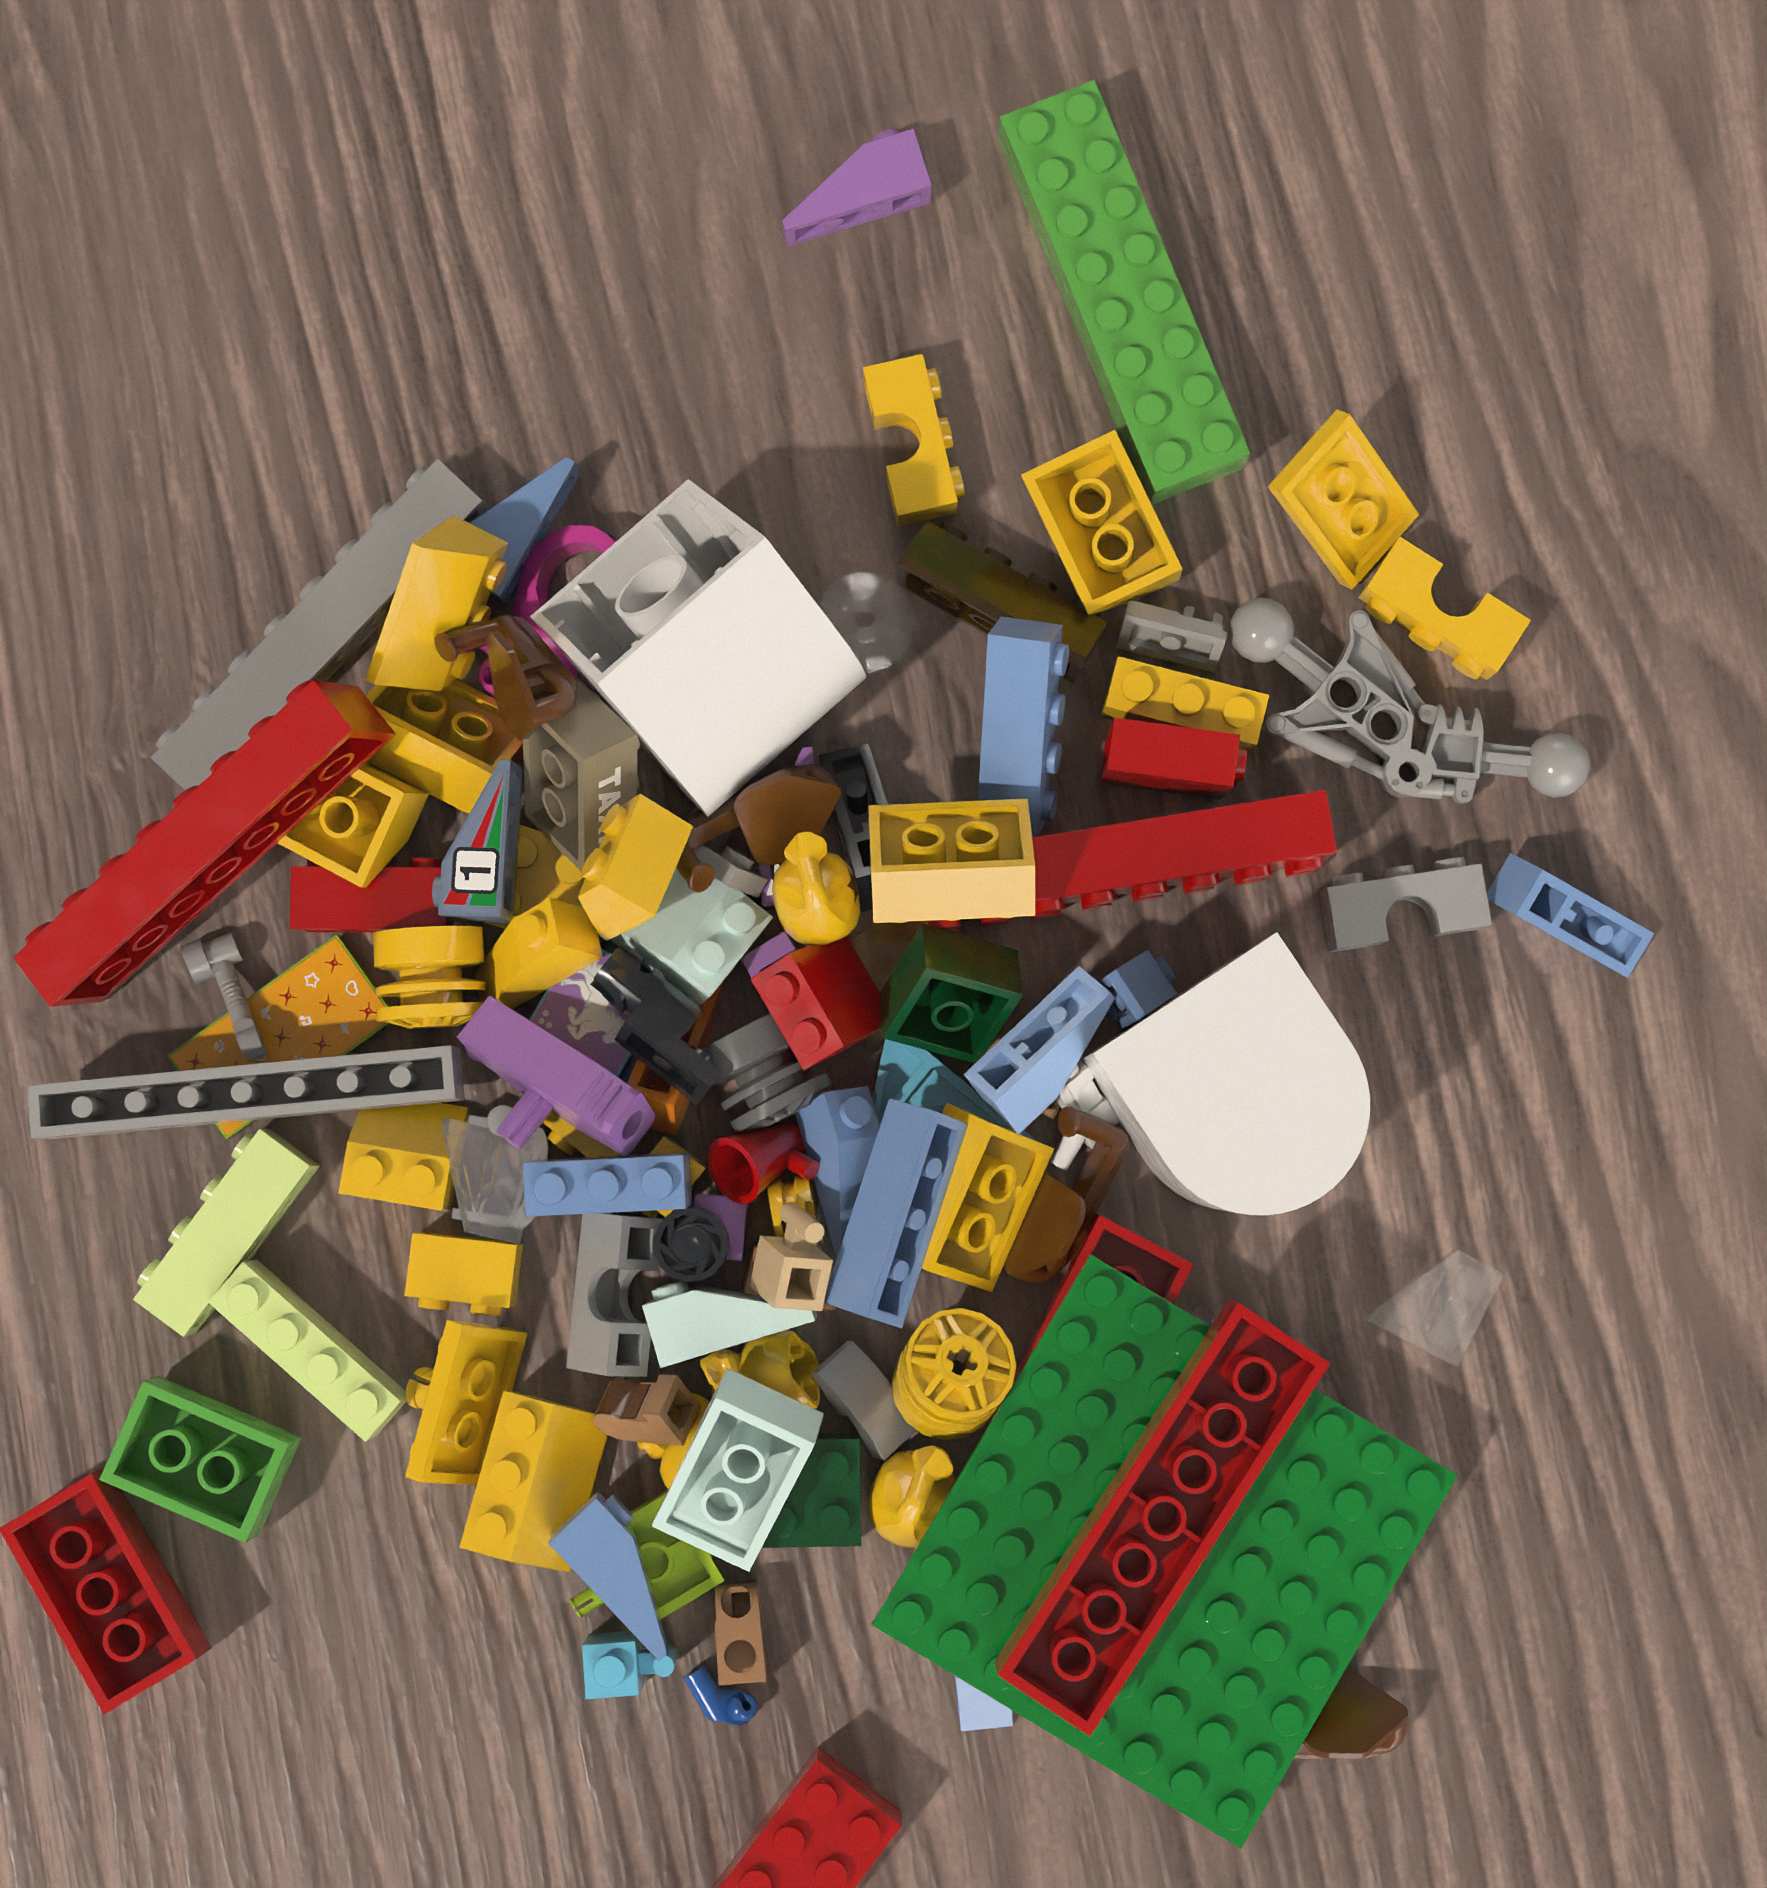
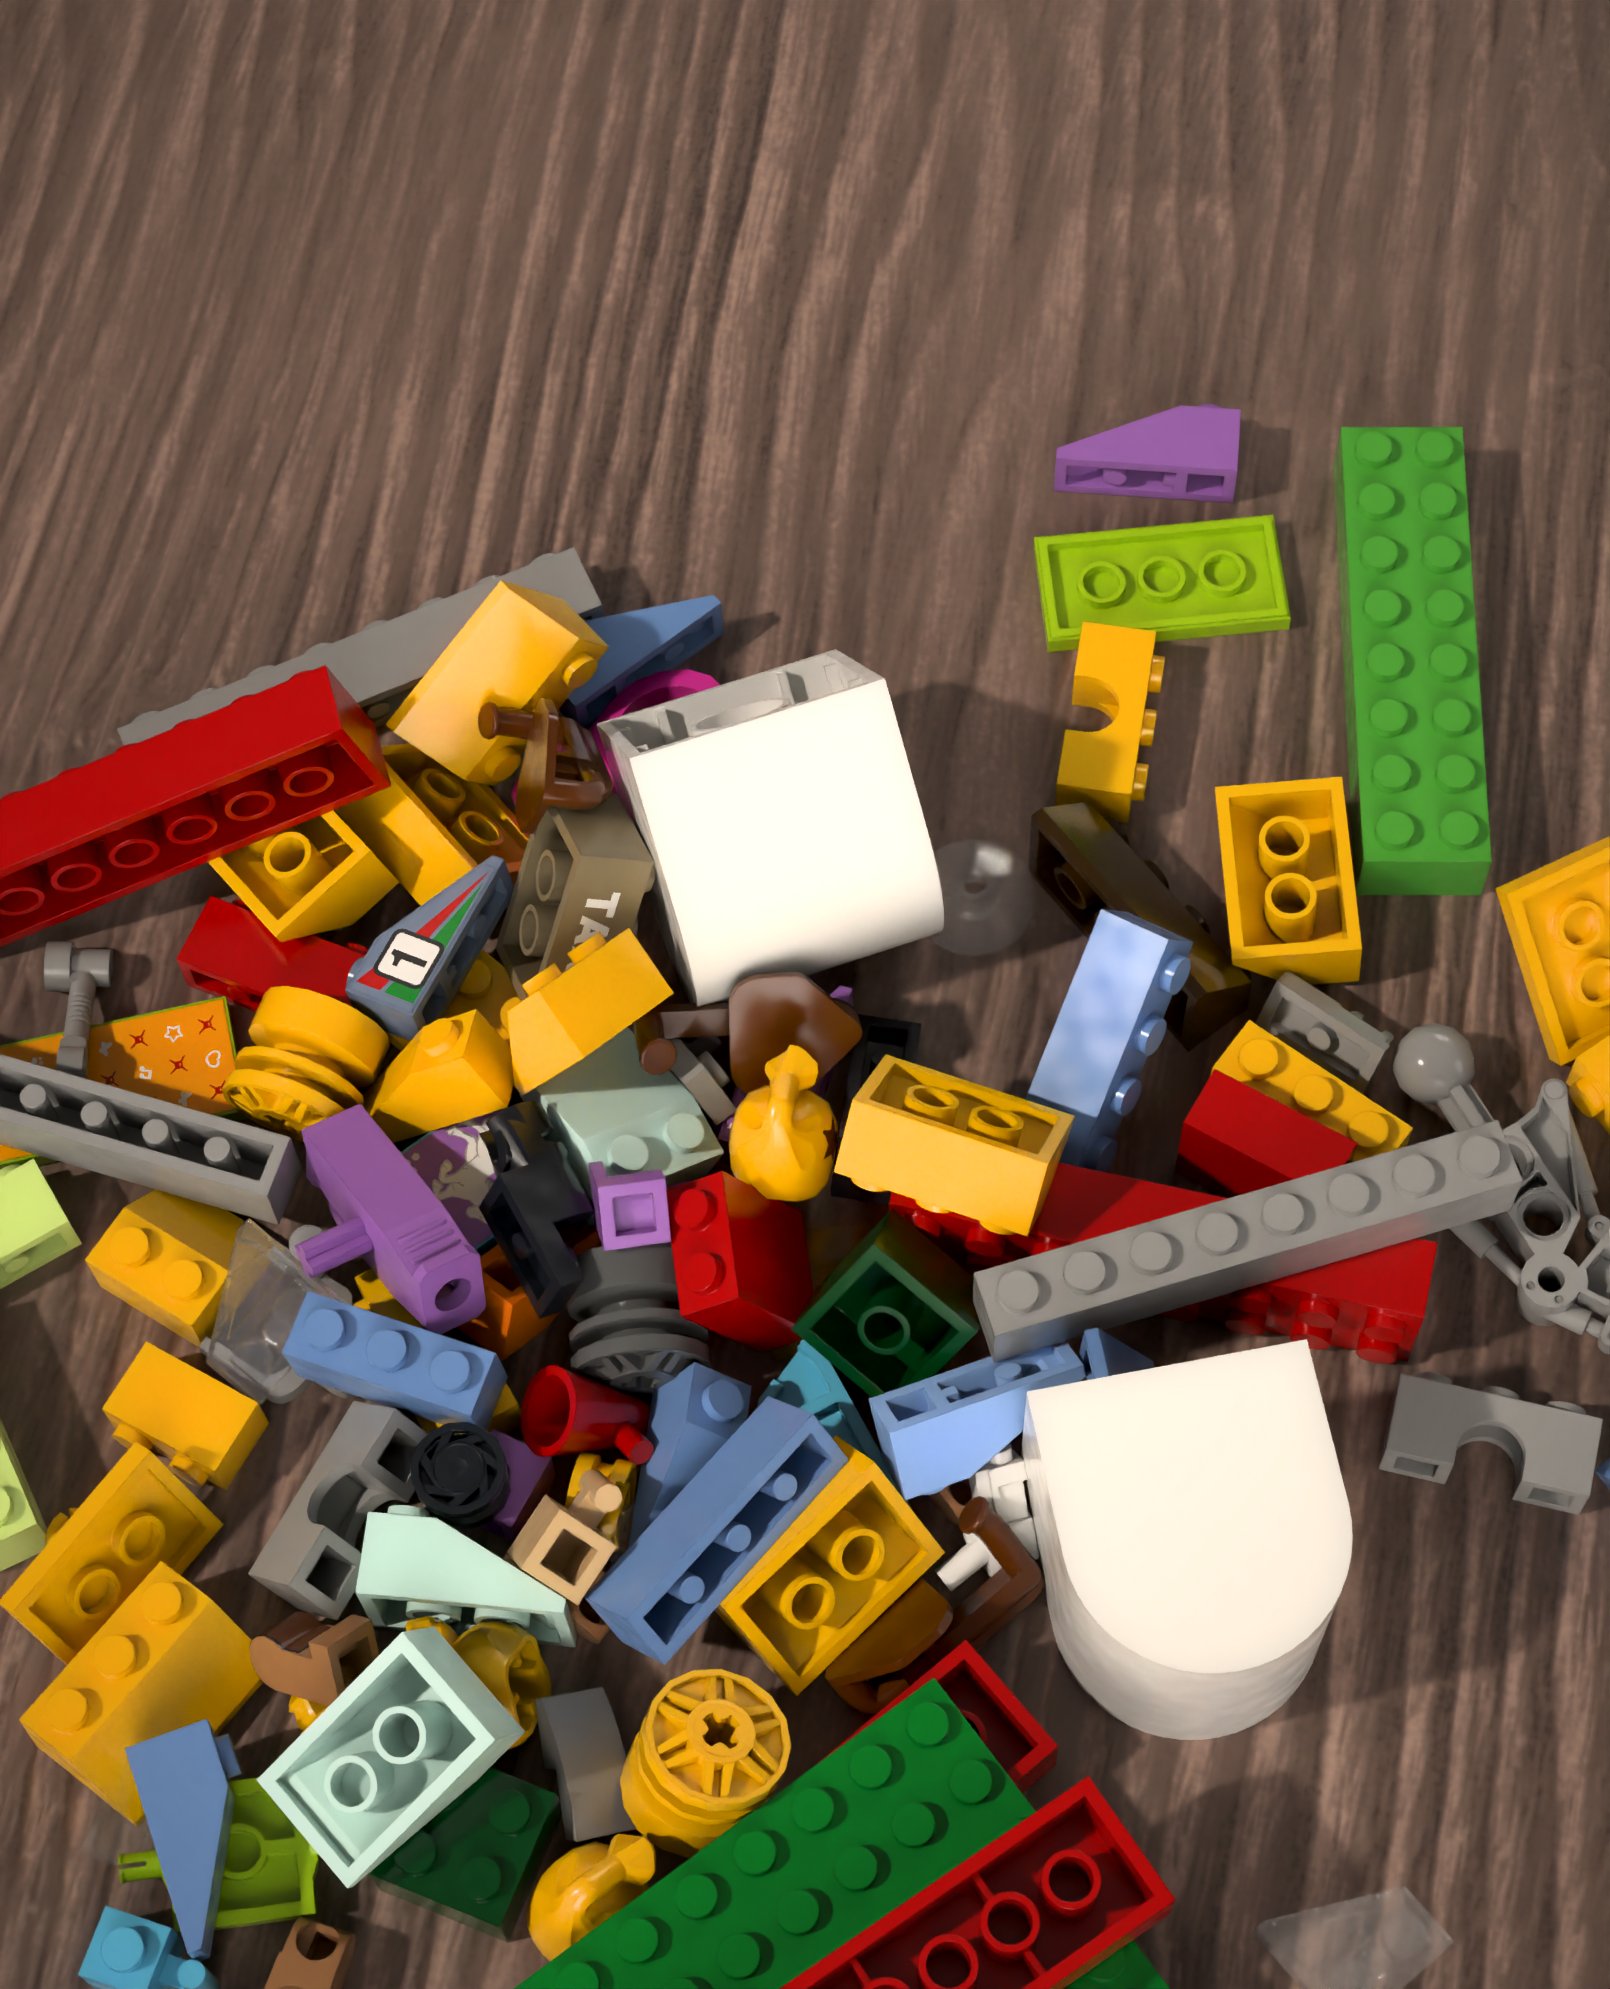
camera: 25 degrees right, 20 degrees down
(731, 1007) = (629, 1208): none -> medium lavender panel
(904, 297) = (1164, 580): none -> lime tile
(1194, 852) = (1245, 1240): none -> light grey brick

